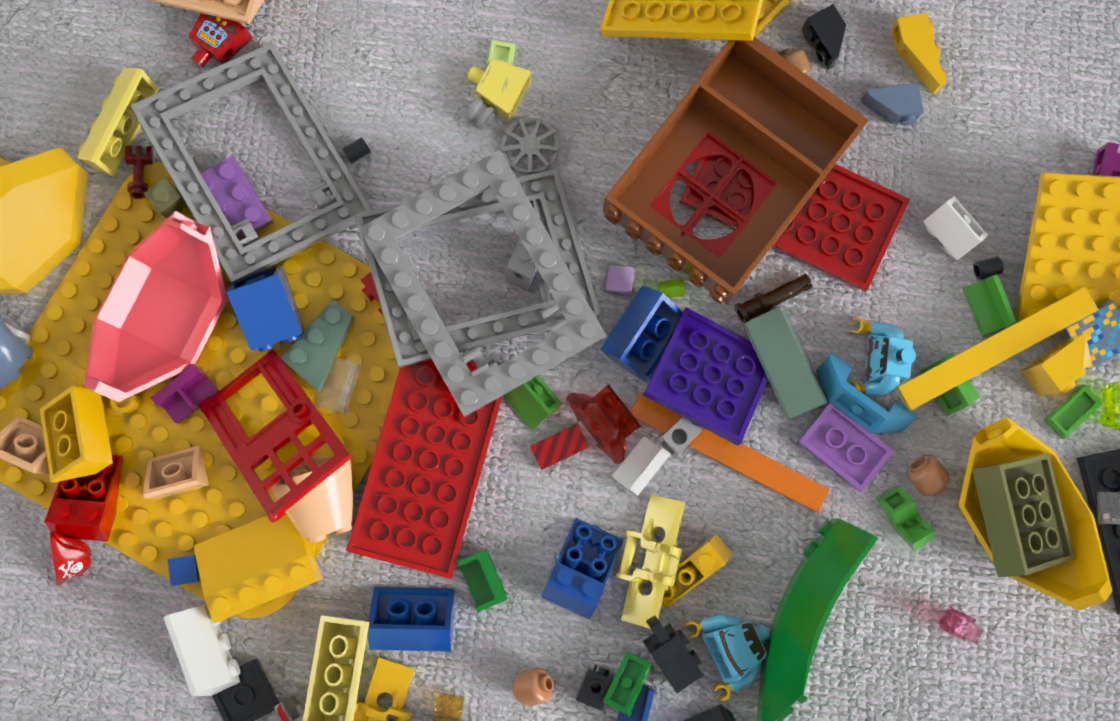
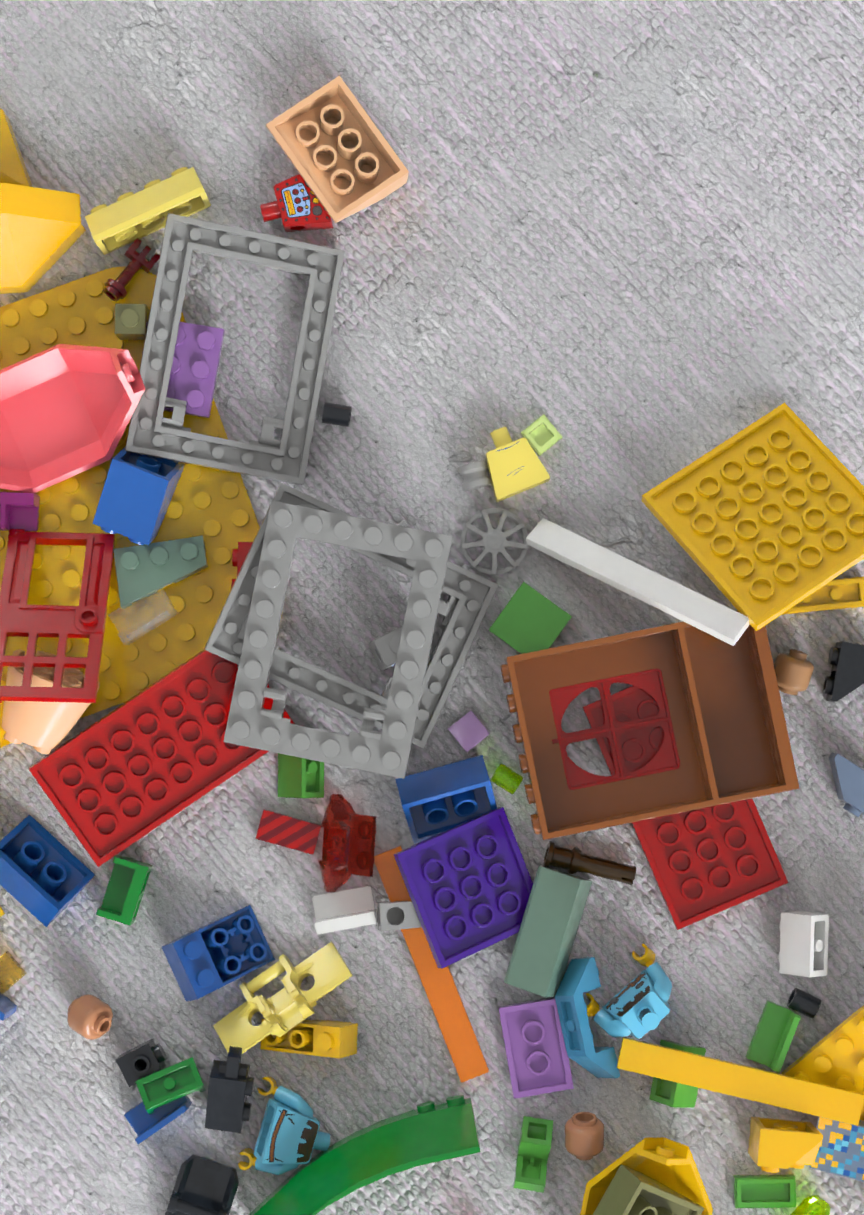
camera: 45 degrees right, 5 degrees up
(595, 175) = (529, 621): none -> bright green tile
(647, 82) = (638, 581): none -> white tile

